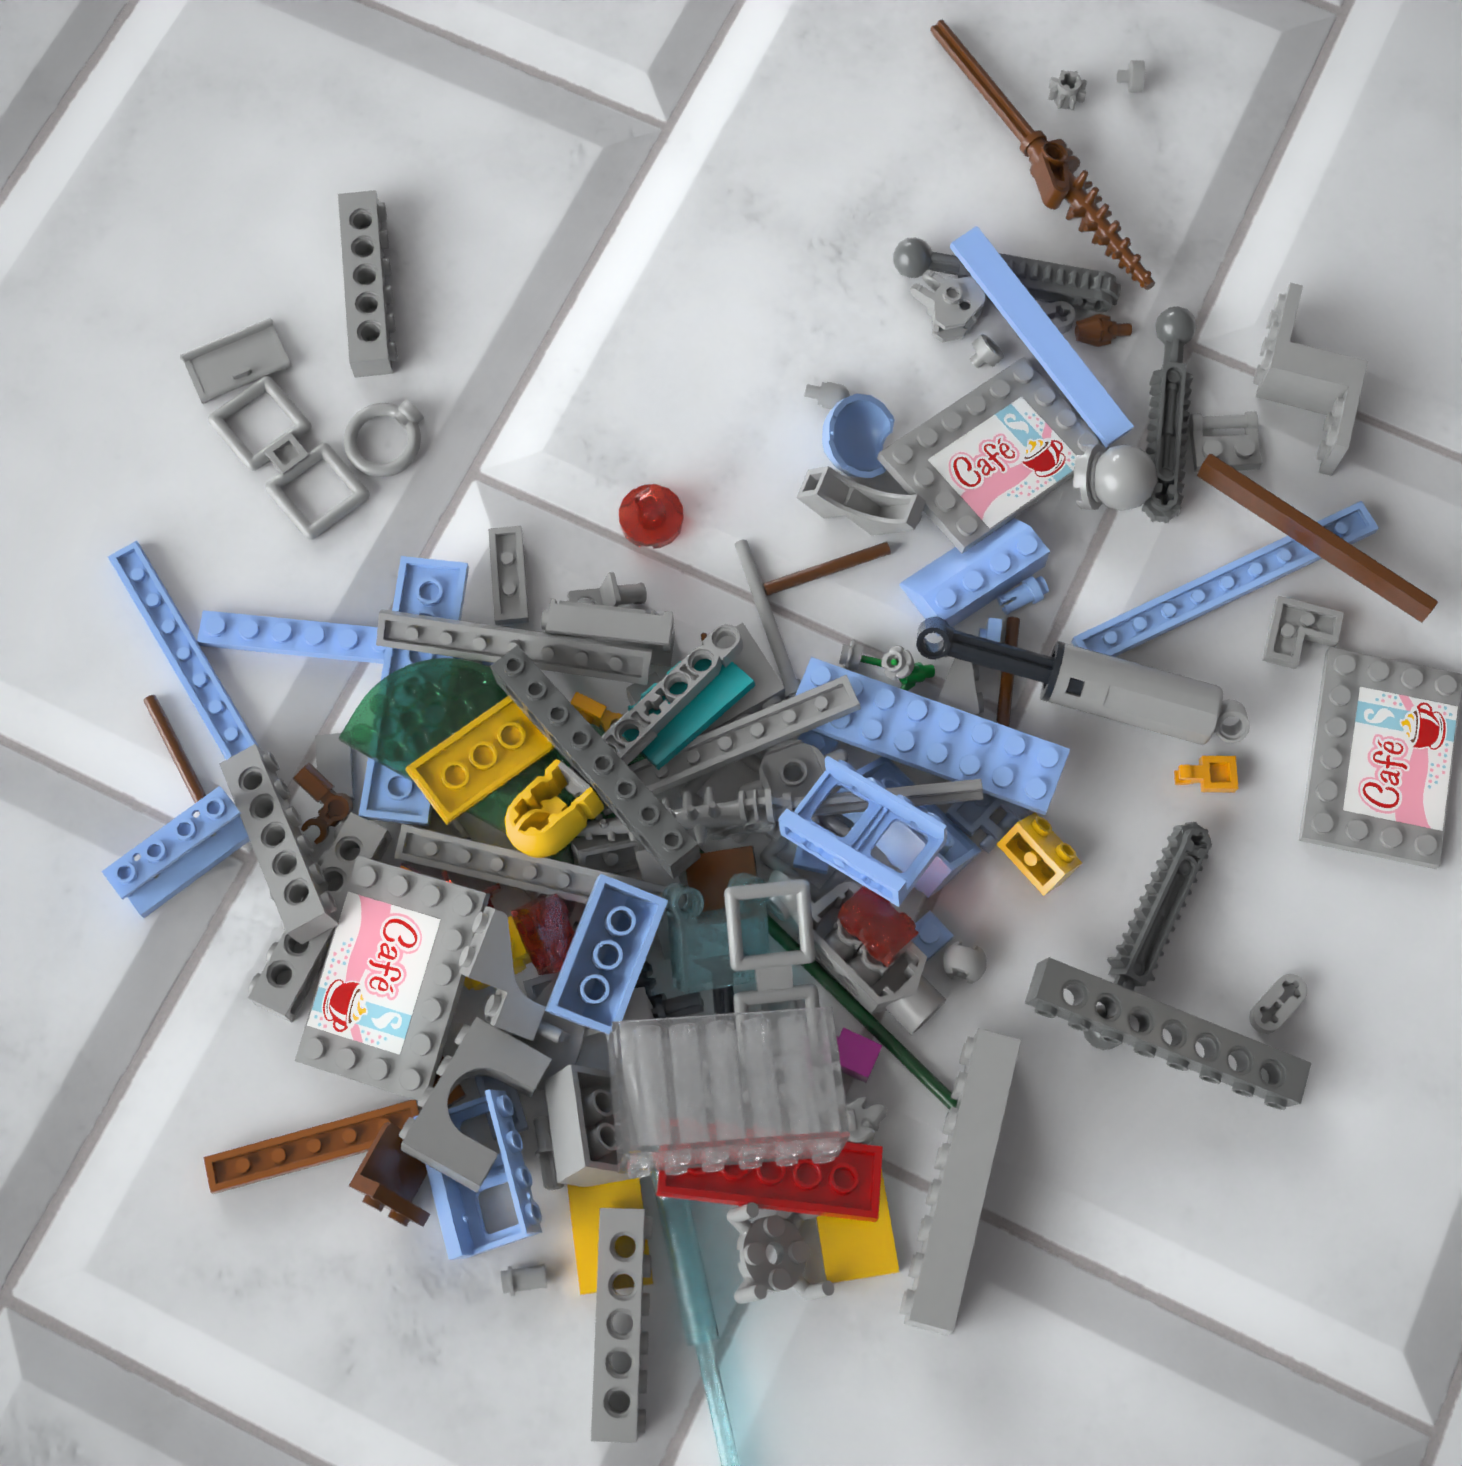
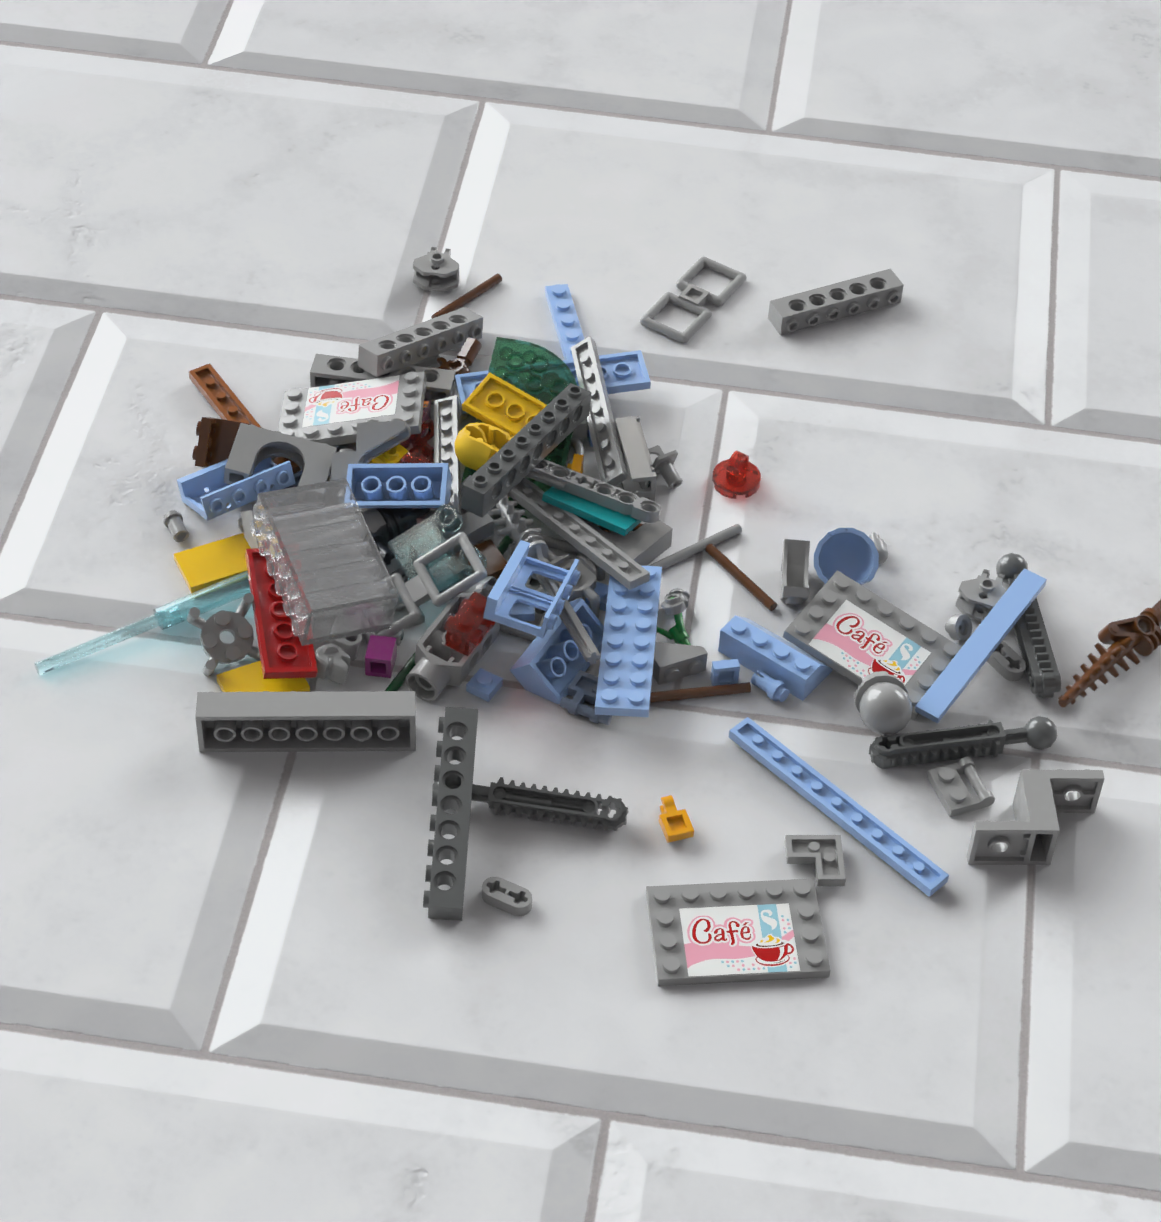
camera: 70 degrees right, 25 degrees down
(116, 779) = (436, 271): none -> light grey hinge
(179, 853) = (399, 311): light blue window -> none
(182, 650) = (534, 285): light blue tile -> none
(233, 357) = (750, 260): light grey door -> none
(406, 415) = (749, 343): light grey piece -> none
(508, 575) = (662, 413): light grey plate -> none
(608, 1423) = (158, 569): light grey brick -> none
(964, 962) = (470, 697): light grey piece -> none
(1039, 853) = (567, 725): yellow brick -> none
(1100, 330) = (1014, 692): reddish brown piece -> none
(1101, 685) = (712, 732): light grey piece -> none
(1317, 538) = (895, 842): reddish brown tile -> none

